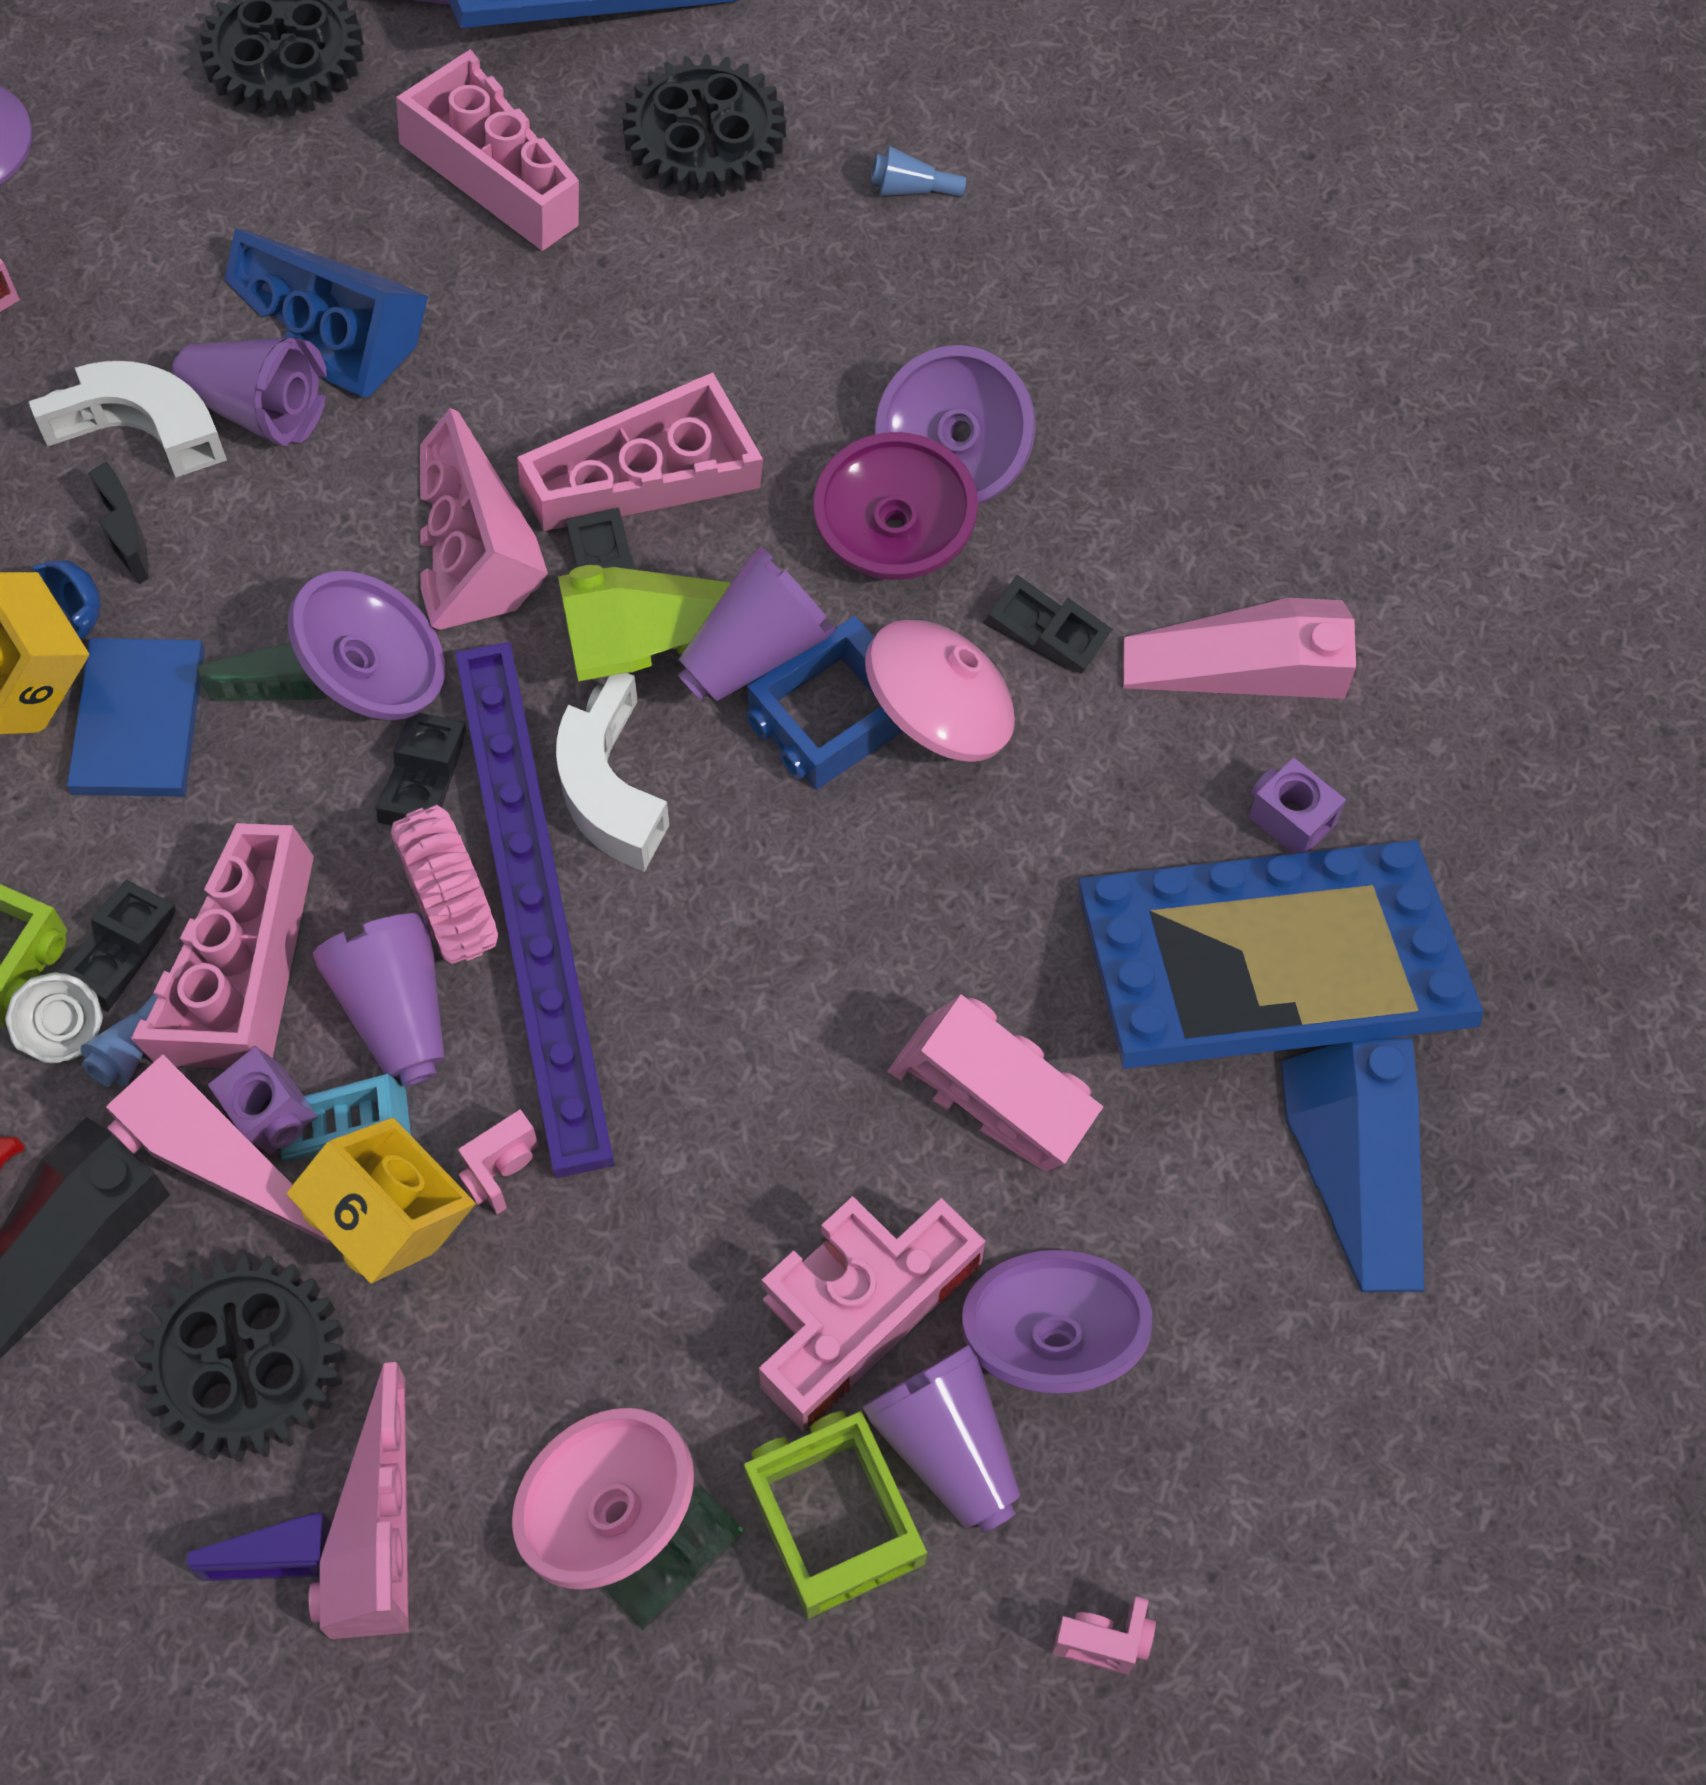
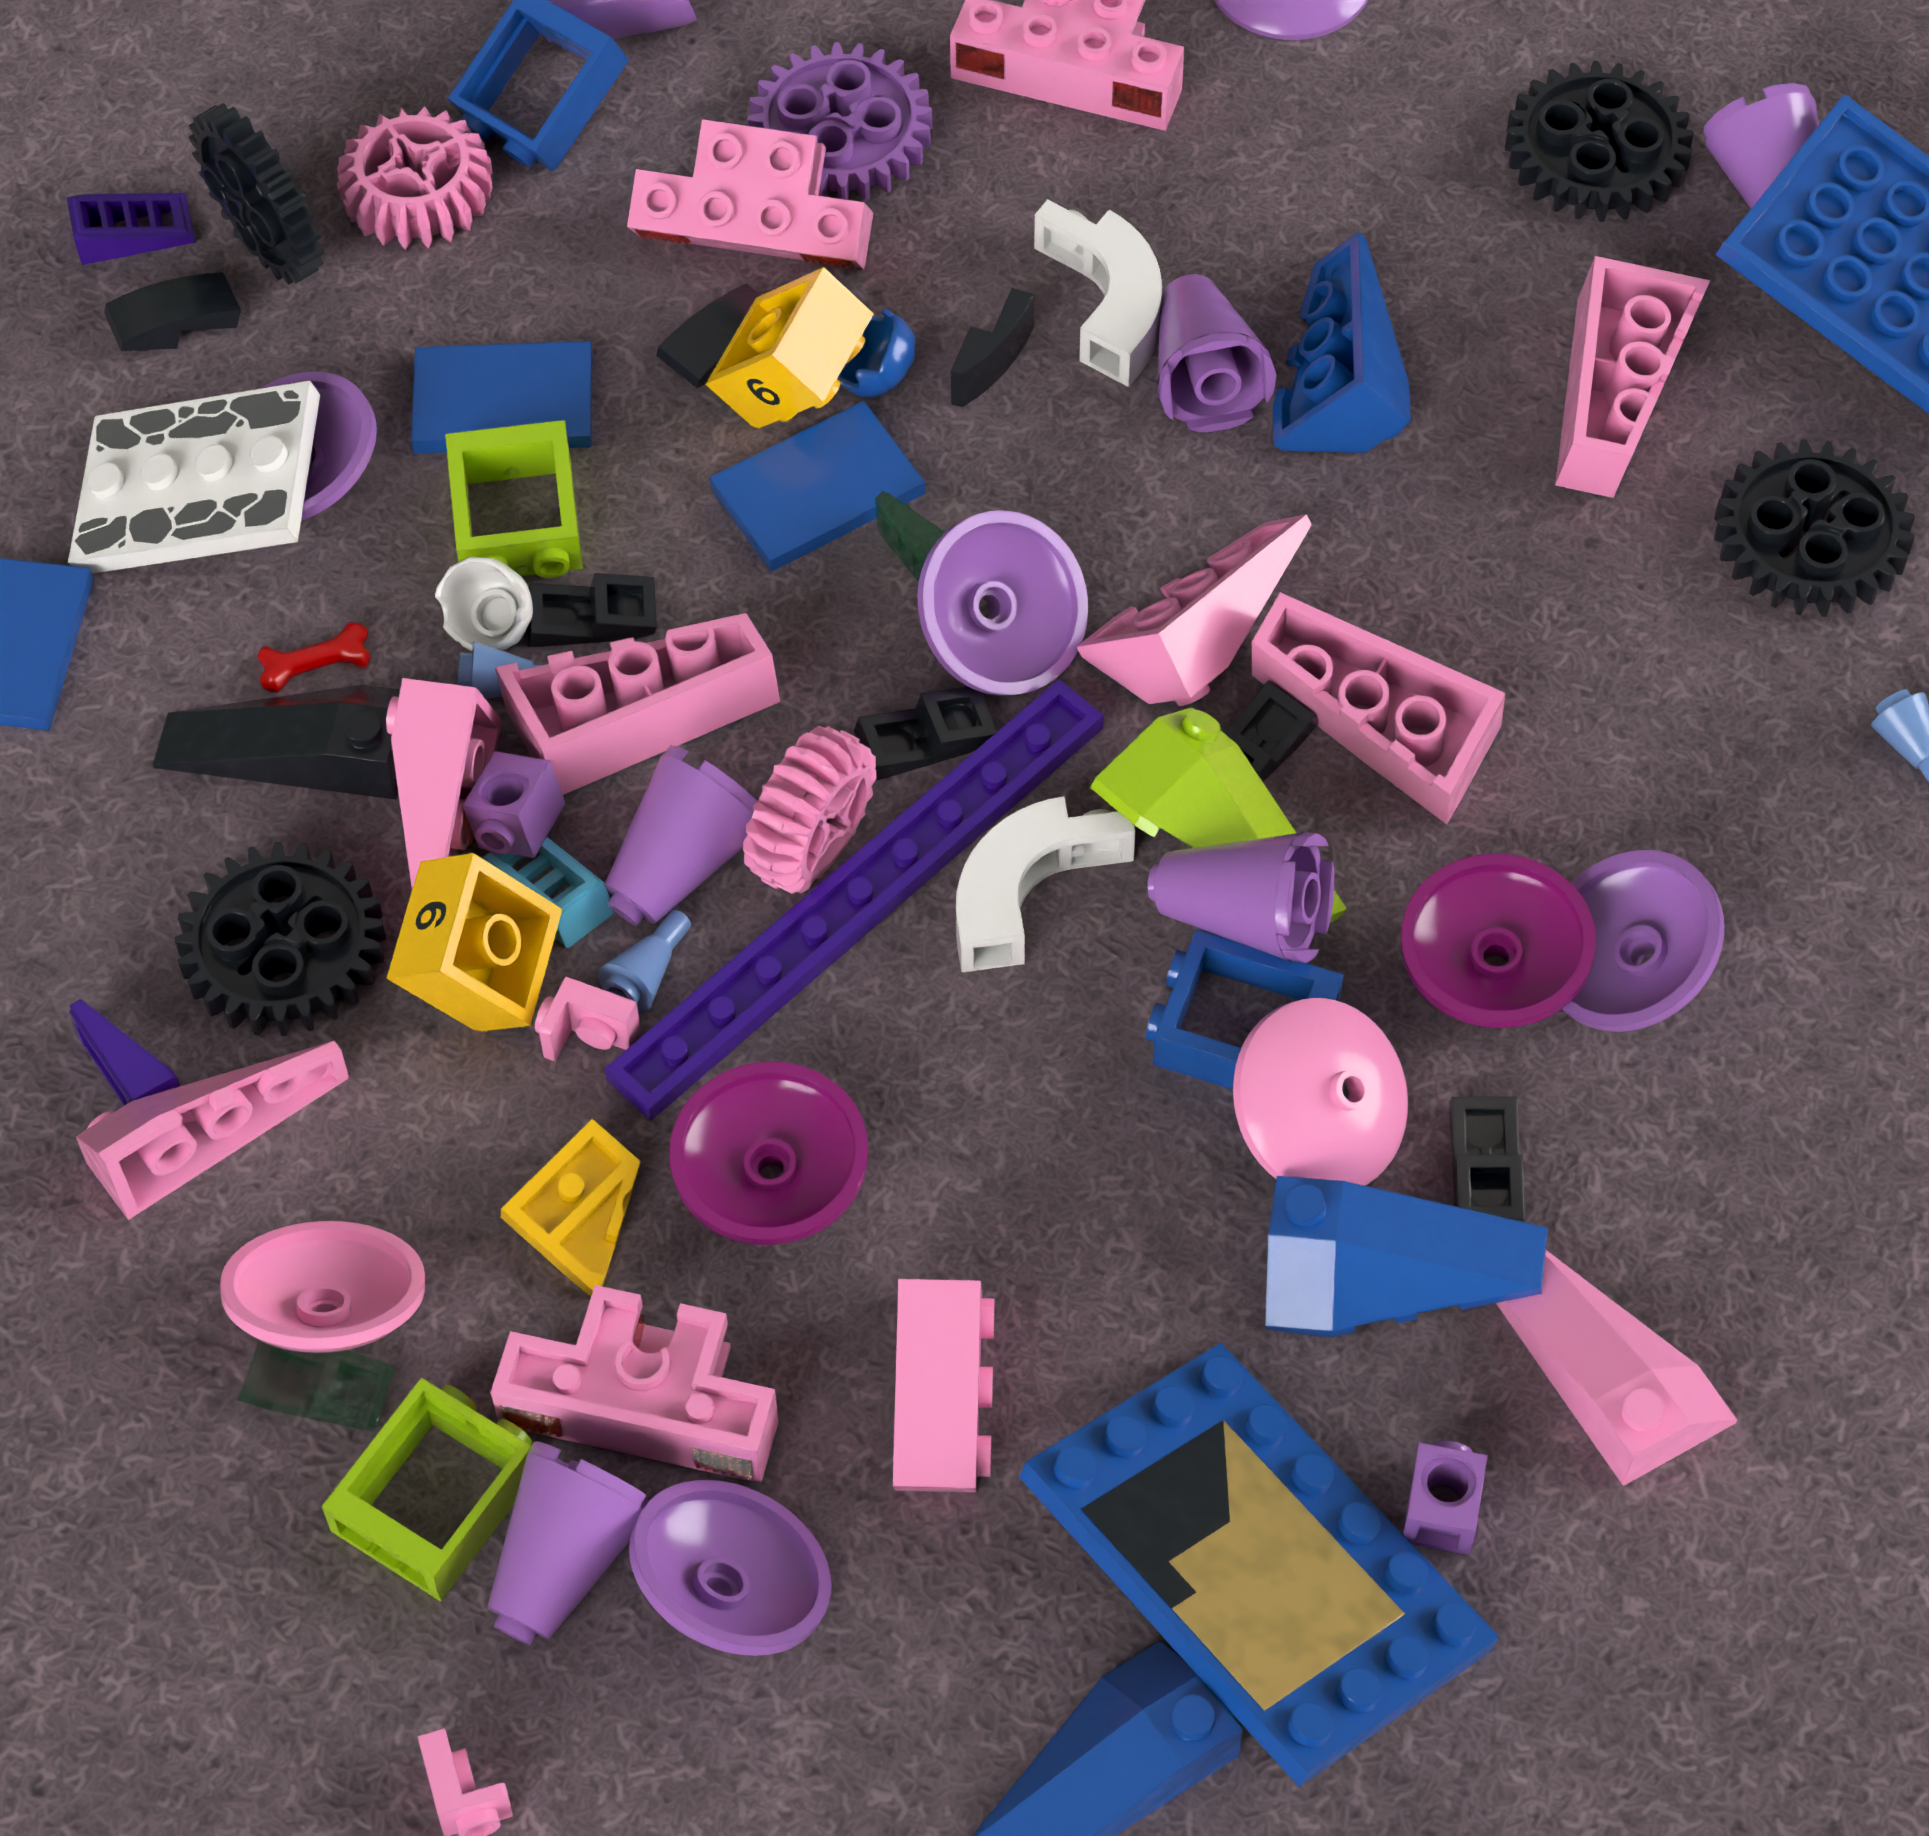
camera: 60 degrees right, 5 degrees down
(478, 1095) = (641, 967): none -> medium blue cone
(656, 1262) = (577, 1205): none -> yellow wing
(716, 1054) = (762, 1119): none -> magenta dish
(1082, 739) = (1376, 1255): none -> blue wedge

